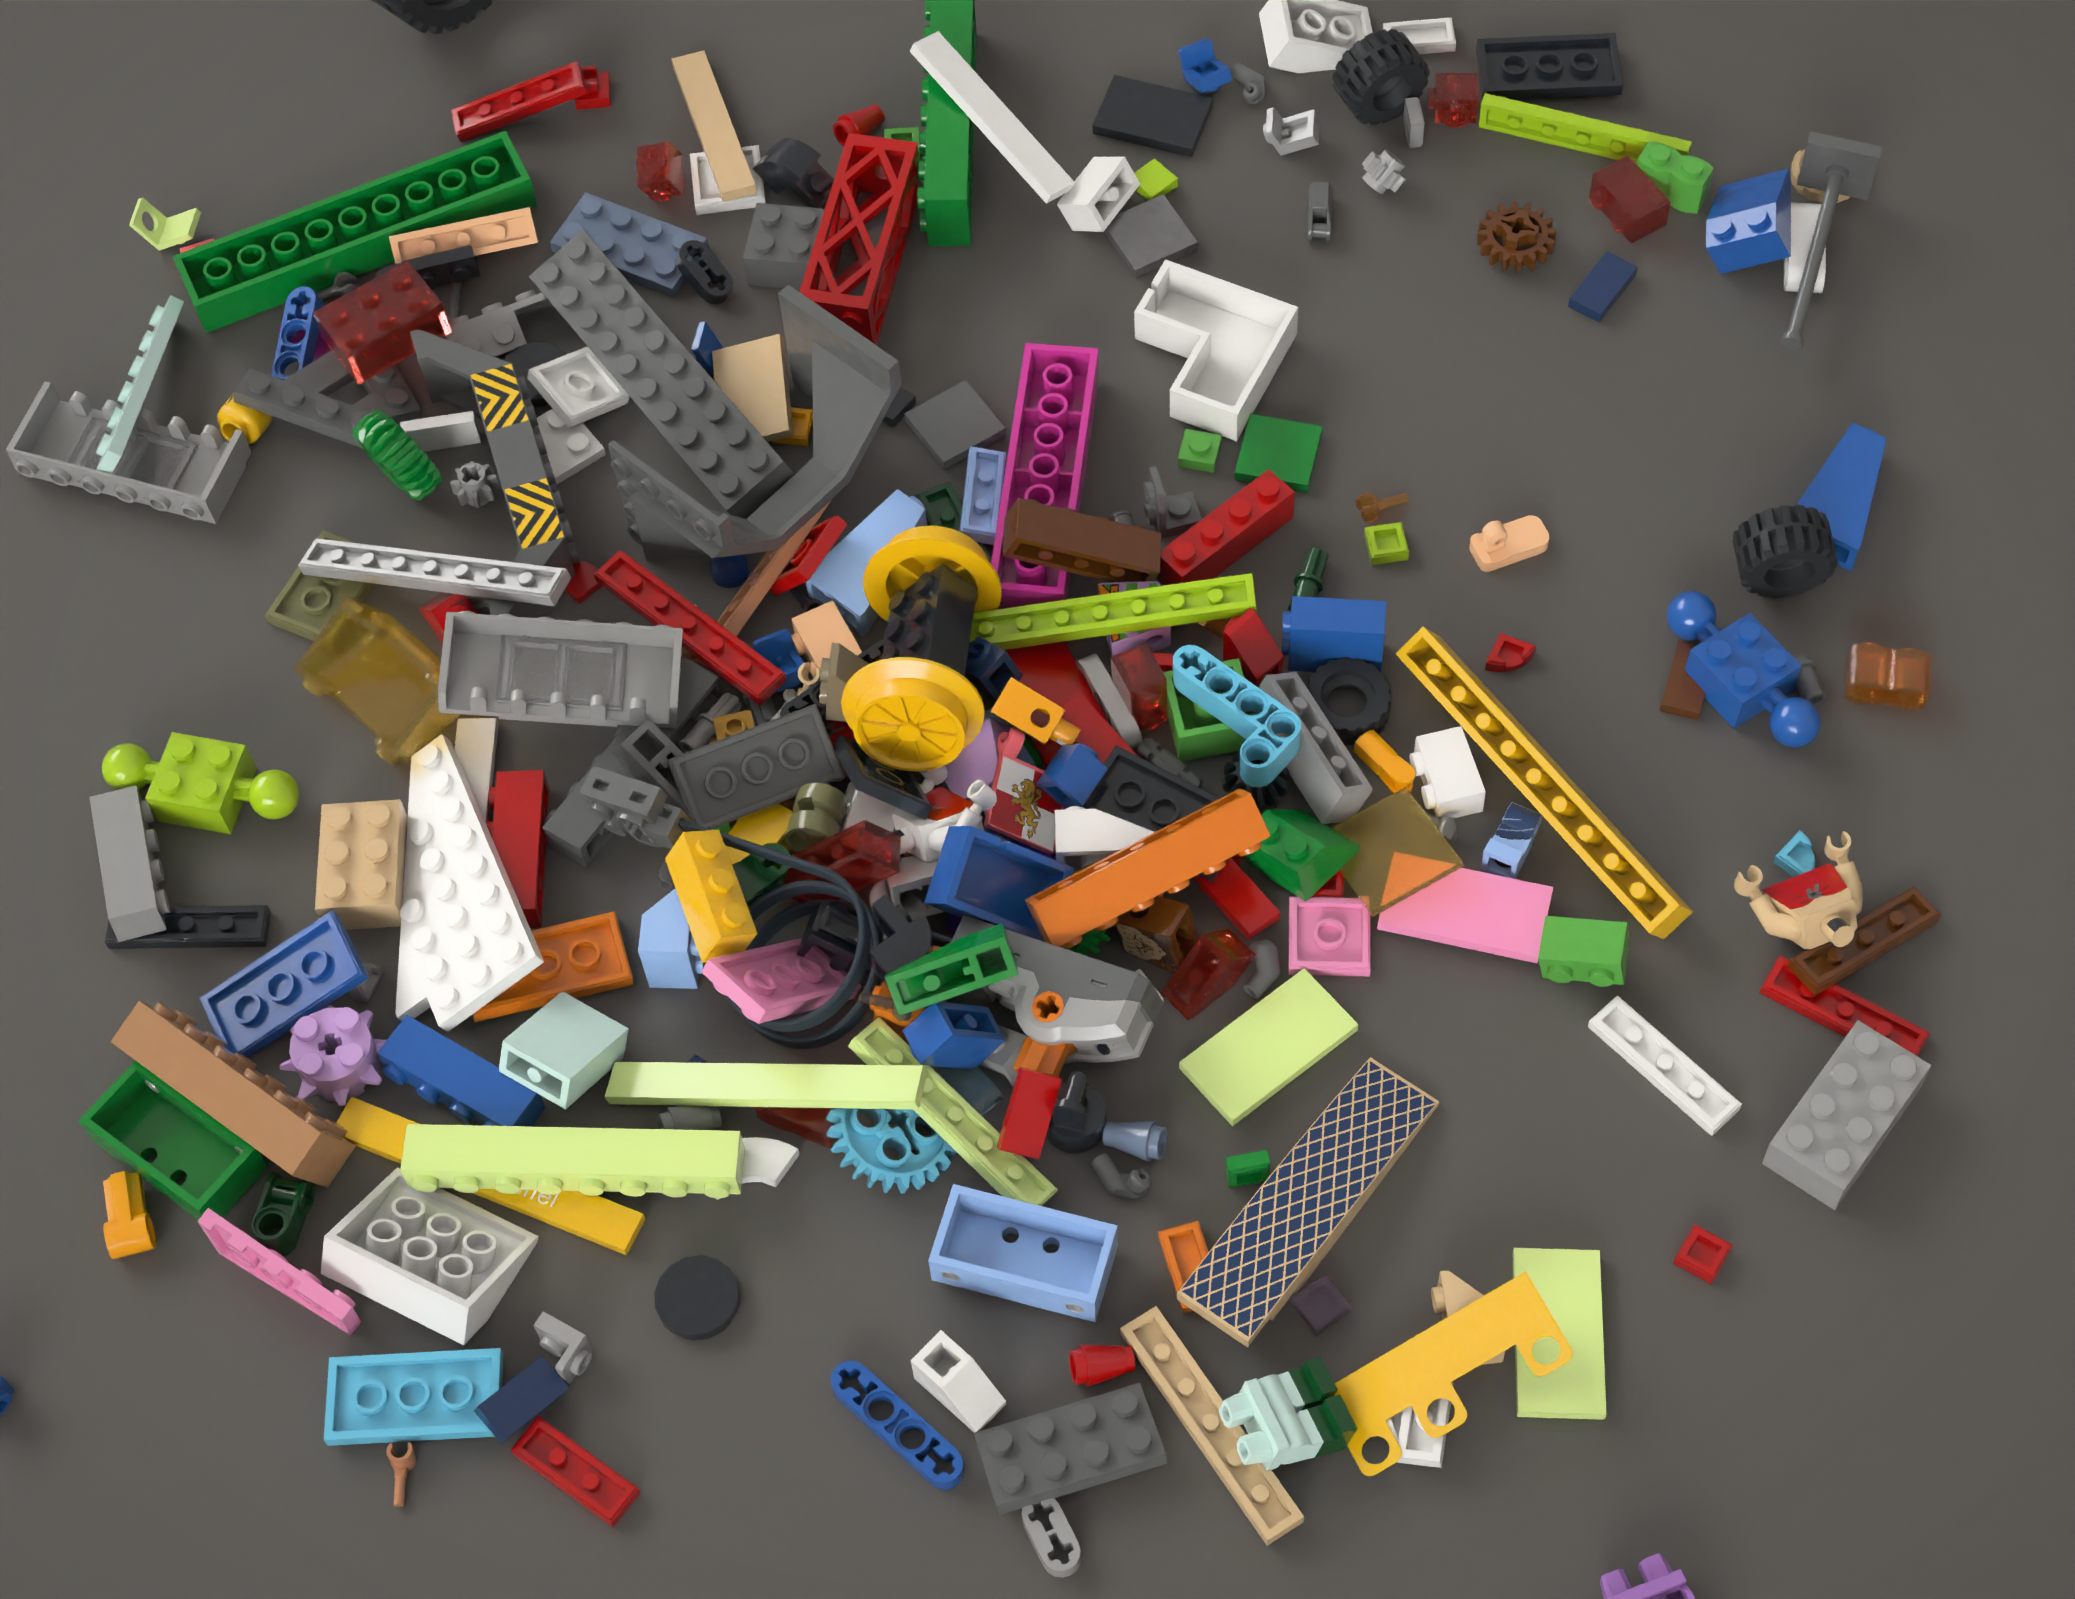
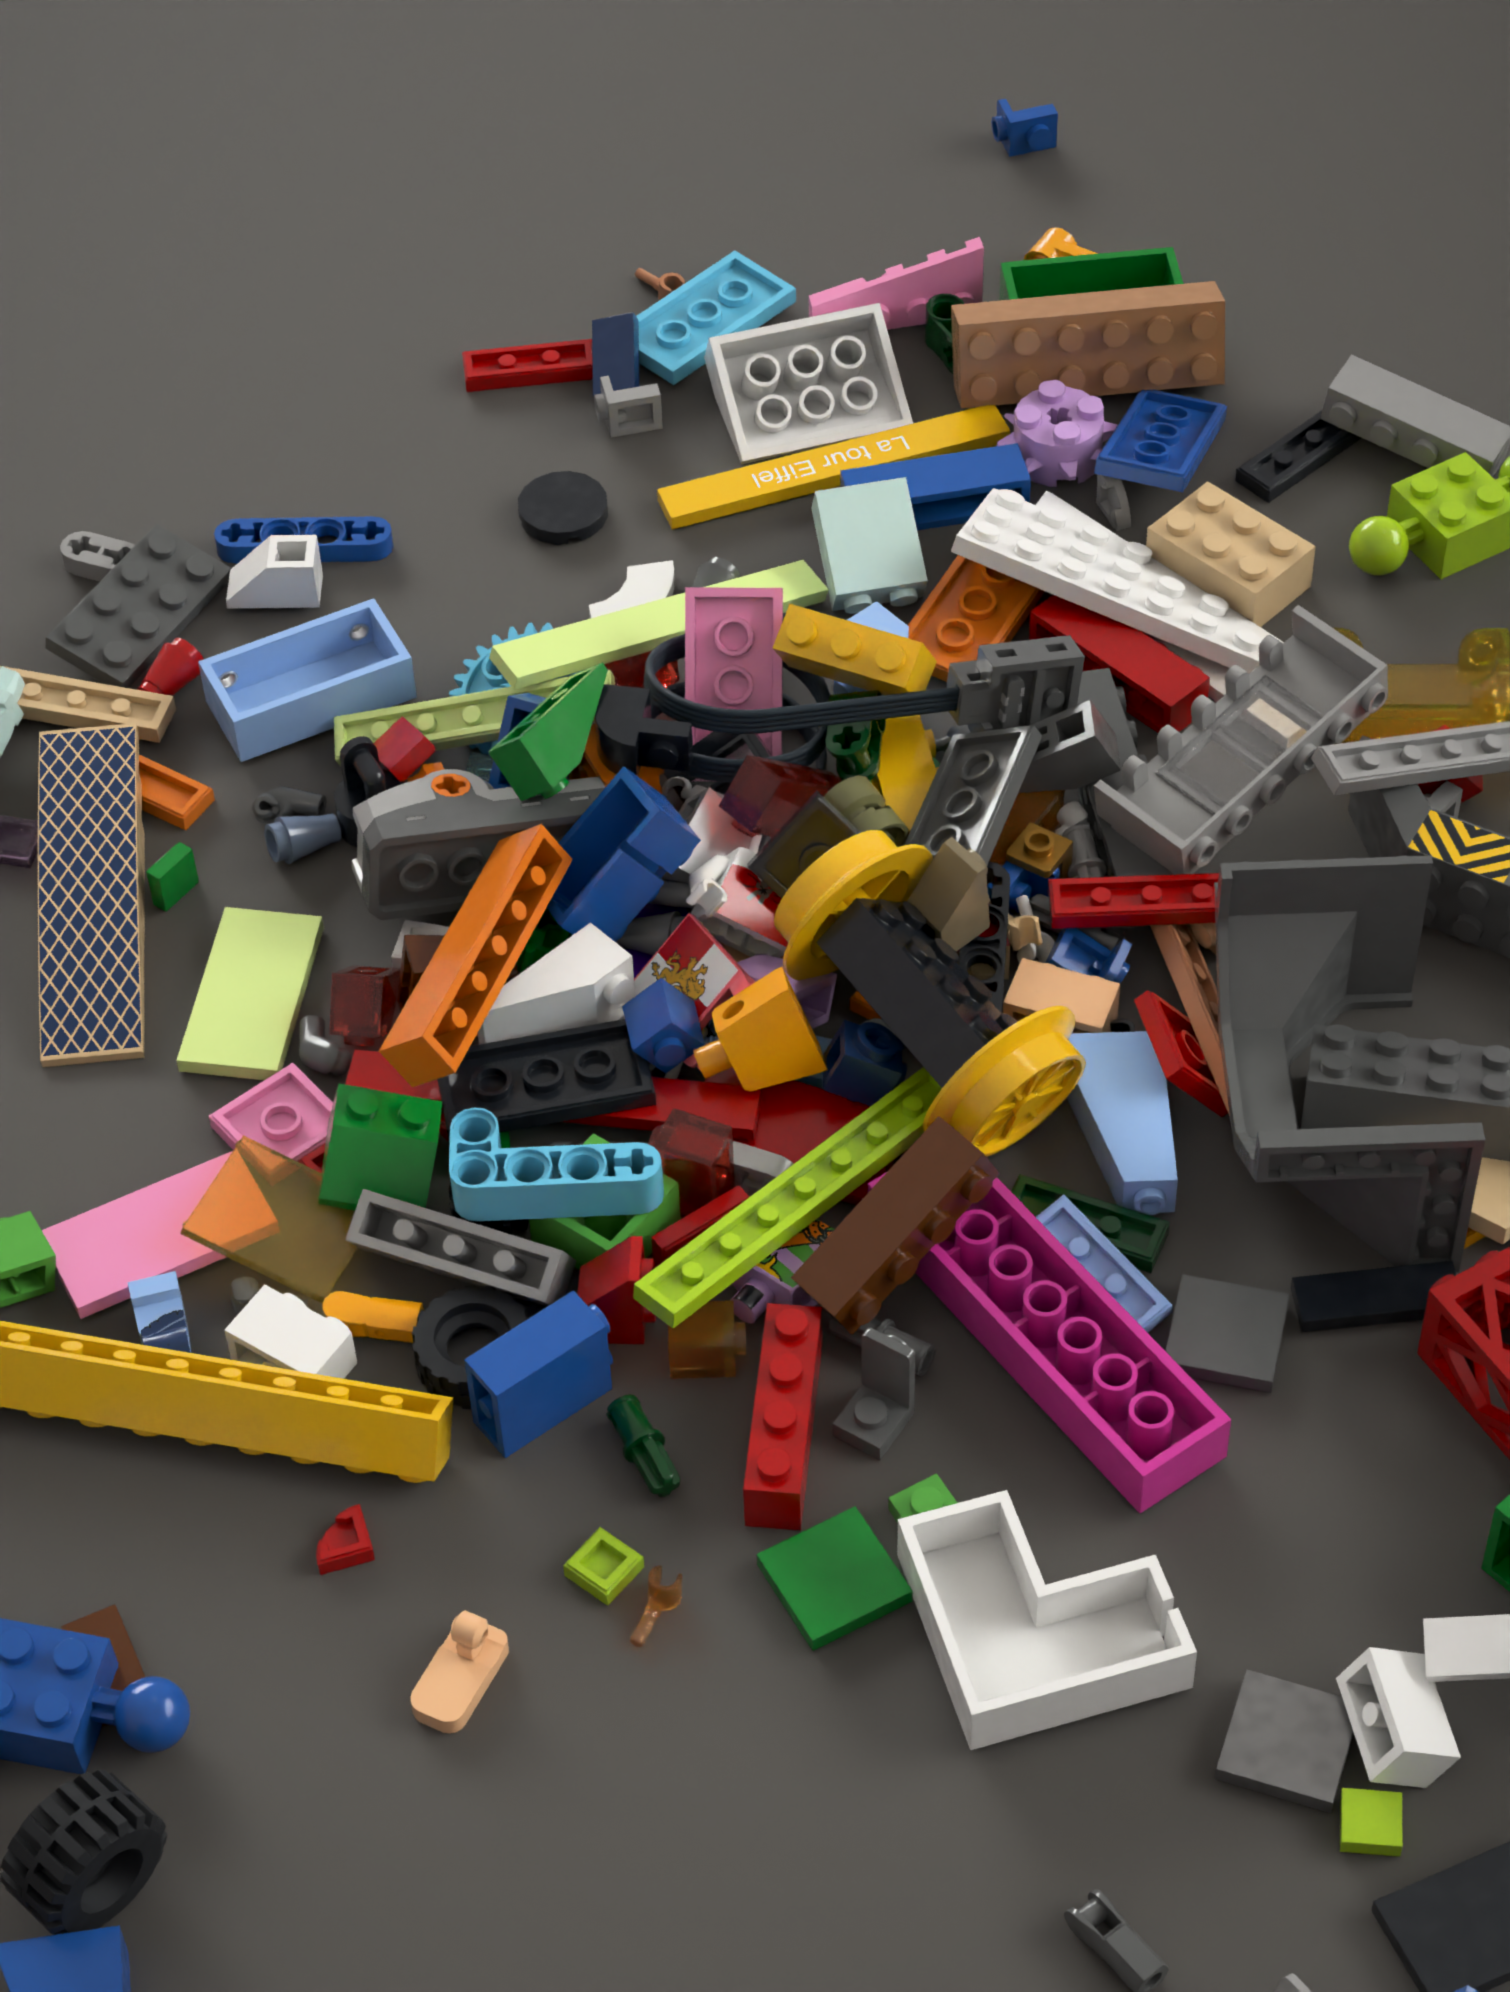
camera: 135 degrees right, 10 degrees down
(573, 1160) = (760, 492): yellowish green brick -> none

